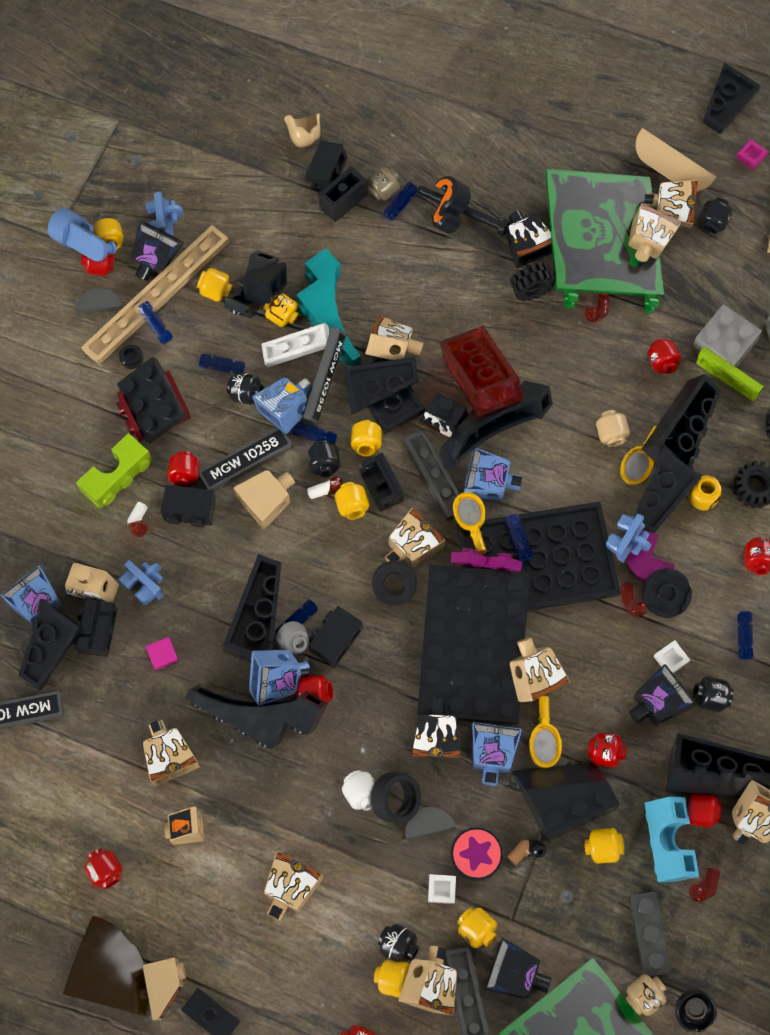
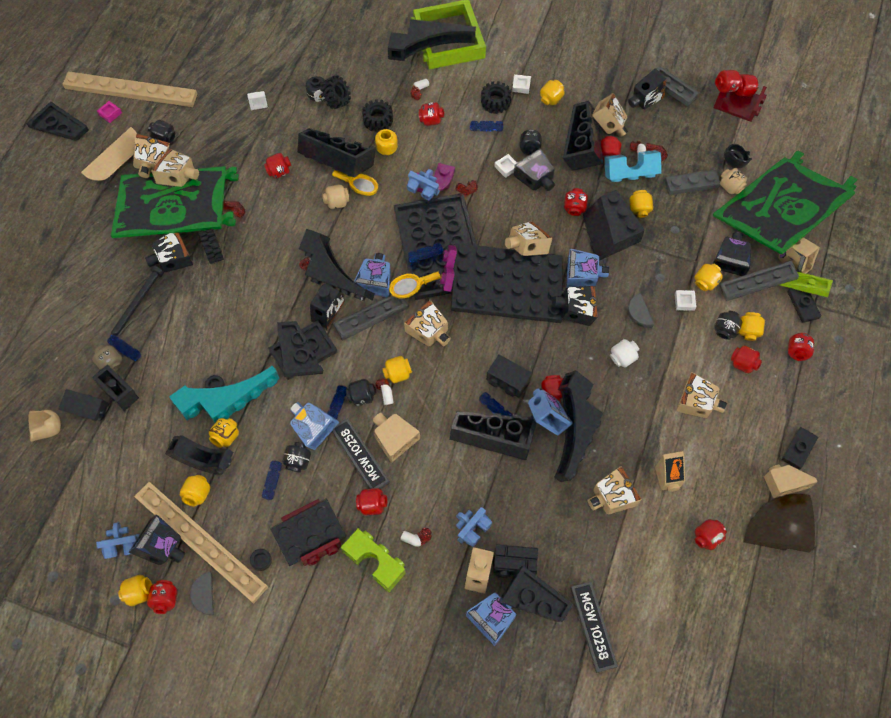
camera: 95 degrees left, 5 degrees down
(76, 233) = (131, 619): medium blue piece -> none
(155, 322) = (230, 537): clear blue axle -> none
(162, 653) = (531, 507): dark pink tile -> none
(188, 505) = (403, 495): black brick -> none
(264, 283) = (204, 439): black slope -> none
(292, 637) = (514, 404): light grey cone -> none
(295, 345) = (258, 417): white tile -> none
(324, 375) = (289, 390): dark grey tile -> none
(343, 960) = (746, 359): none -> red head
(347, 300) = (214, 381): none -> black tile
(366, 437) = (342, 362): yellow head -> none
(381, 482) = (379, 350): black hinge -> none
(392, 340) = (258, 344): tan torso -> none
(401, 596) = (472, 332): black tyre -> none
(411, 800) = (628, 327): black tyre -> none
(430, 984) = (754, 300): tan torso -> none
(452, 204) = (135, 303): black animal -> none
(476, 854) = (656, 281): tile -> none
(481, 371) = (291, 274): clear red brick -> none
(527, 848) = (647, 249): arm -> none
(545, 740) = (573, 240): yellow piece -> none
(665, 489) = (386, 161): black wing -> none
(666, 593) = (460, 167): black tile -> none
(713, 857) = (638, 147): none -> arm
(727, 336) = (266, 127): light grey brick -> none
(729, 374) = (293, 127): lime tile -> none

